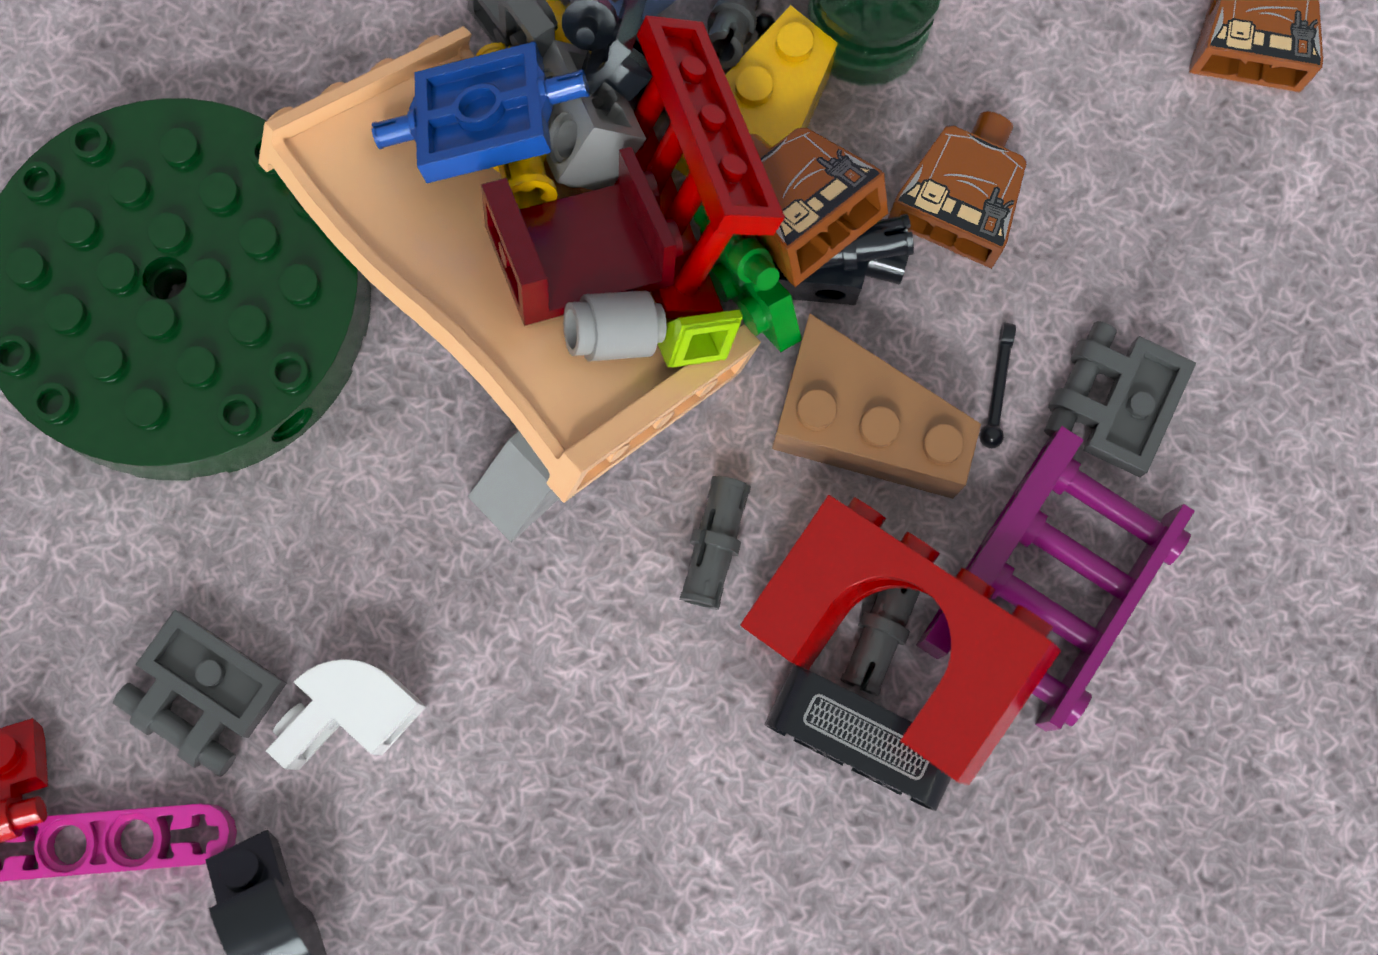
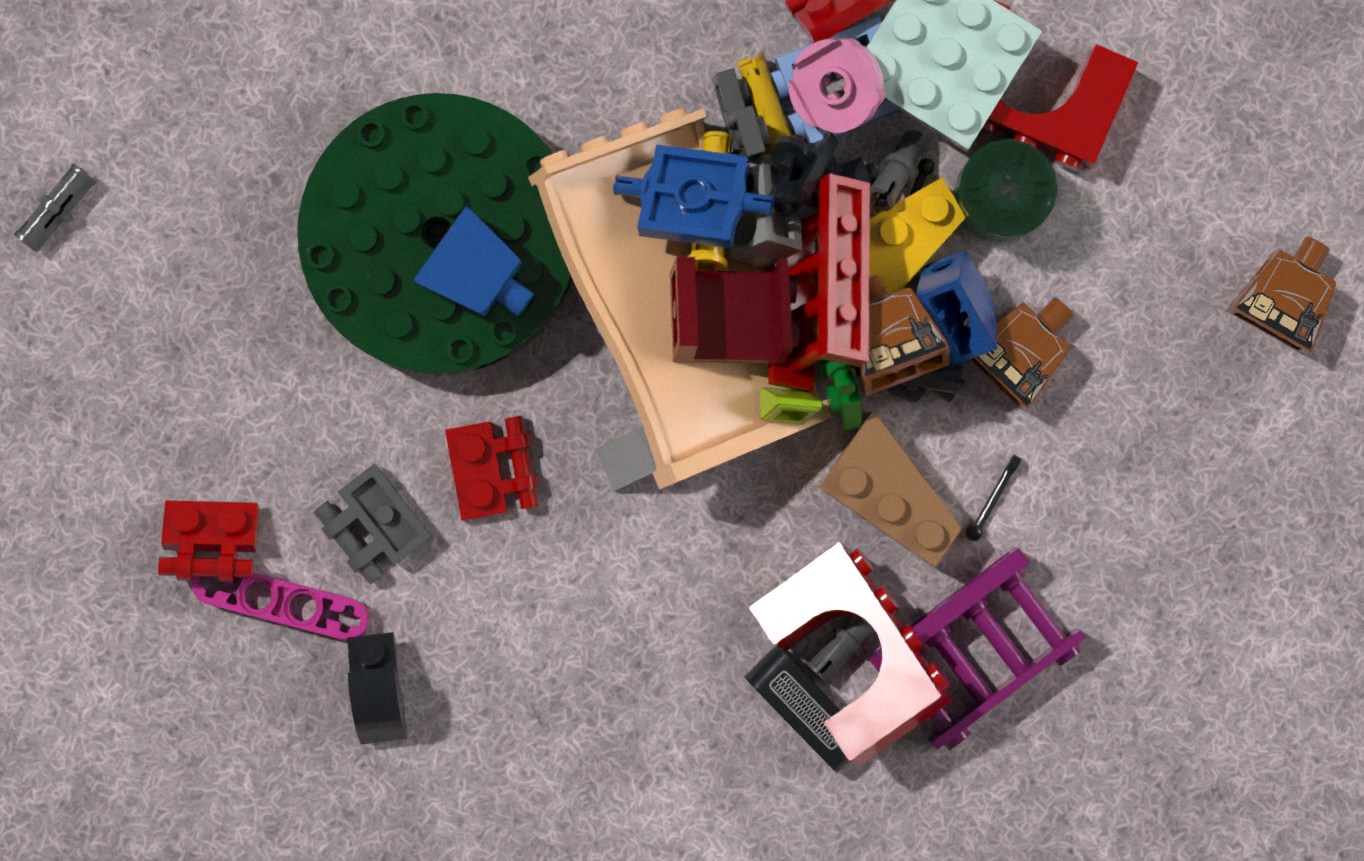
camera: 20 degrees right, 10 degrees up
(216, 294) = (474, 269): none -> blue torso
(320, 574) = (478, 472): none -> red plate
(348, 695) = (476, 562): white brick -> none
(614, 326) = (733, 383): light grey brick -> none
(715, 542) = (754, 541): dark grey pin -> none
(865, 130) = (952, 292): none -> blue torso
(1138, 405) = (1083, 547): dark grey plate -> none

